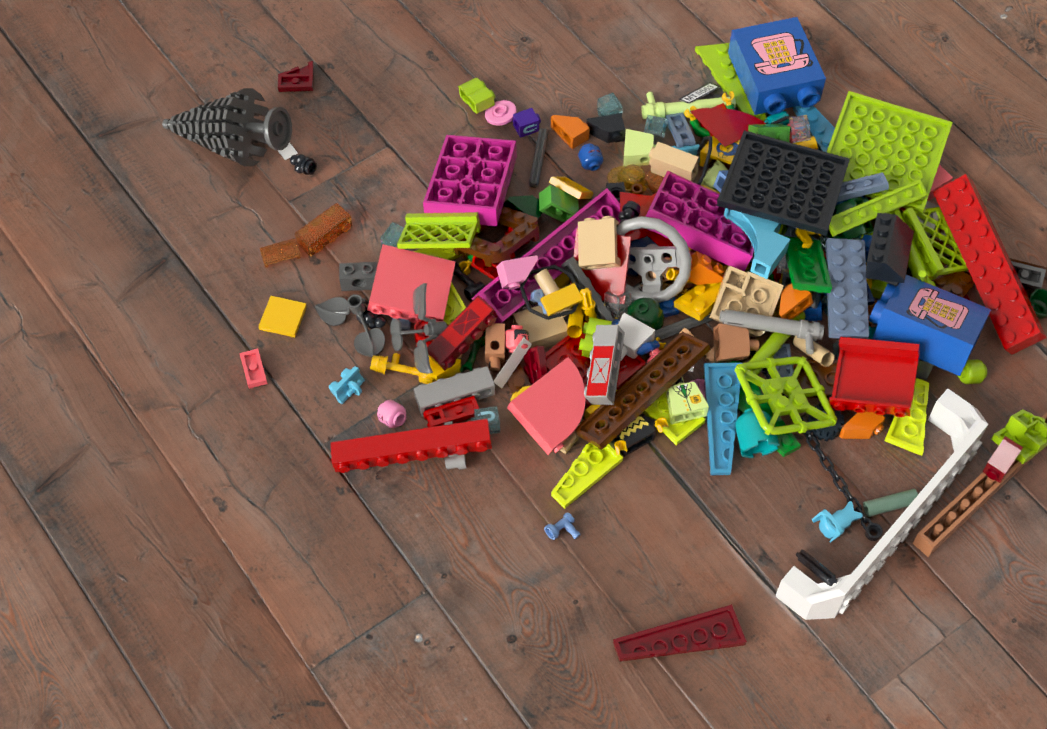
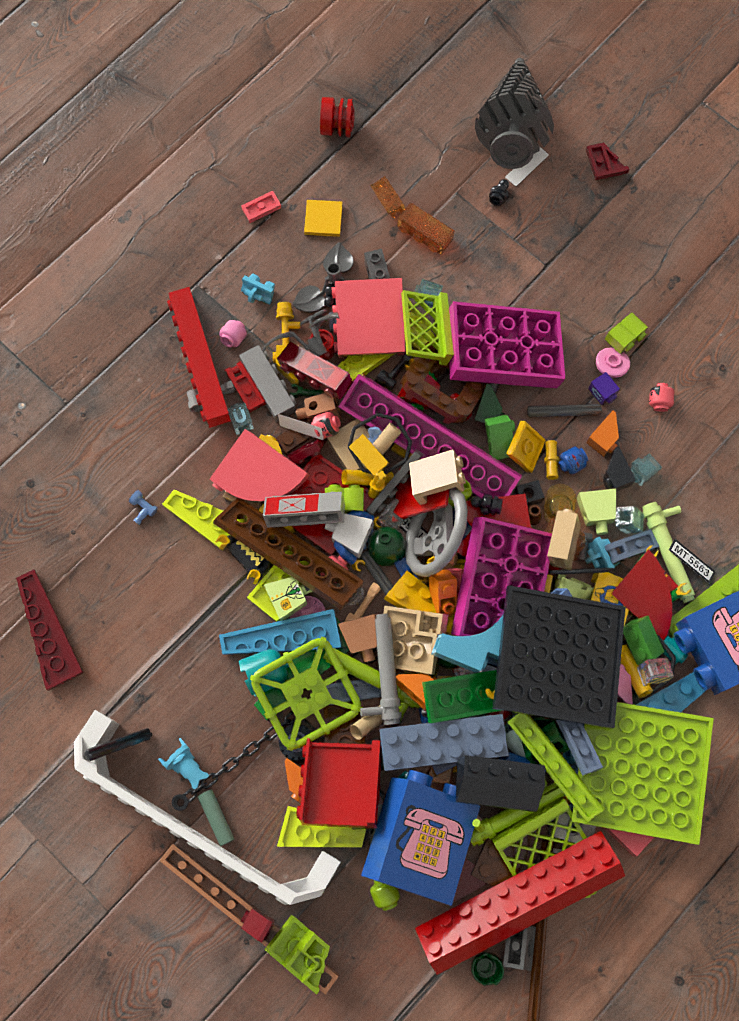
camera: 80 degrees right, 15 degrees up
(177, 279) = (336, 117): none -> red wheel
(515, 271) = (387, 403): bright pink slope -> none
(544, 83) = (661, 397): none -> coral head
(585, 174) = (551, 460): none -> yellow pin

